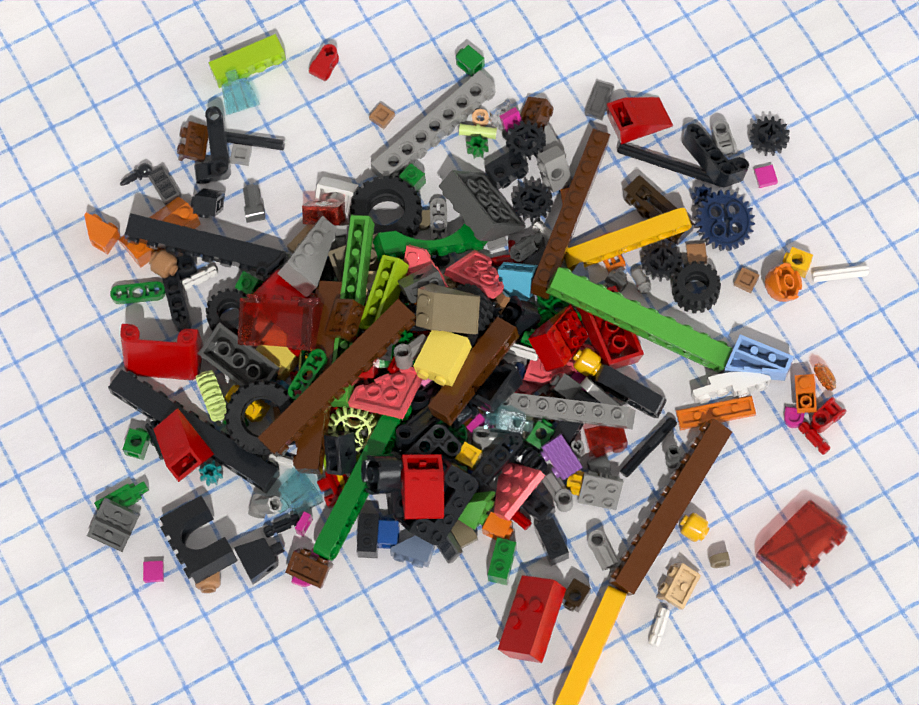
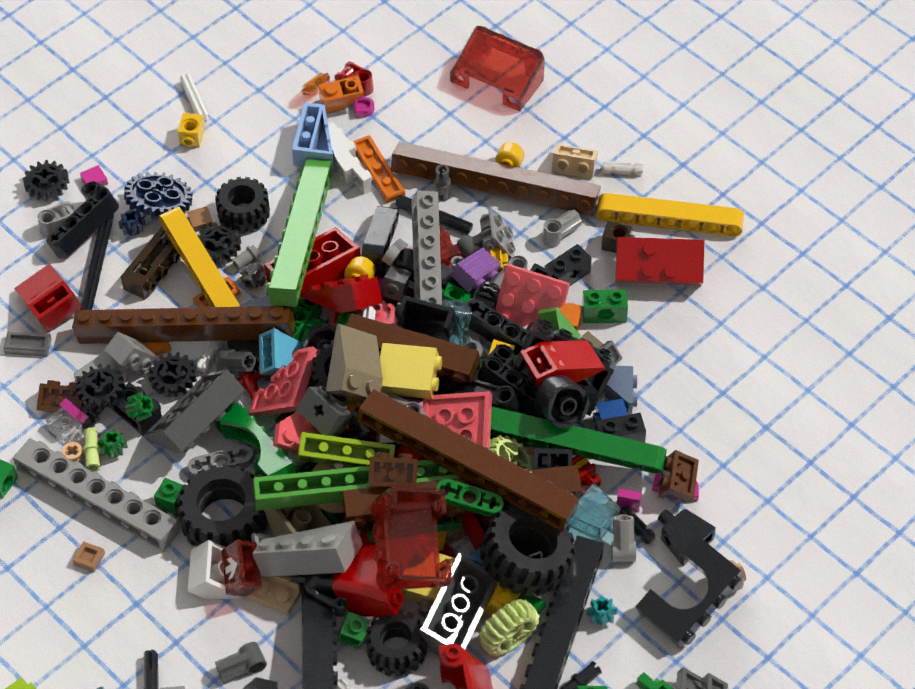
camera: 110 degrees left, 15 degrees down
(153, 571) = (738, 642): dark pink tile -> none
(181, 445) = (585, 638): red slope -> none
(324, 62) = (27, 634): red piece -> none
(496, 159) = (139, 406): none -> green gear
(719, 560) = (536, 130): dark tan tile -> none
(746, 280) = (220, 171): medium nougat tile -> none
(783, 283) = (221, 135): orange cylinder -> none
(814, 438) = (381, 86): red axle -> none

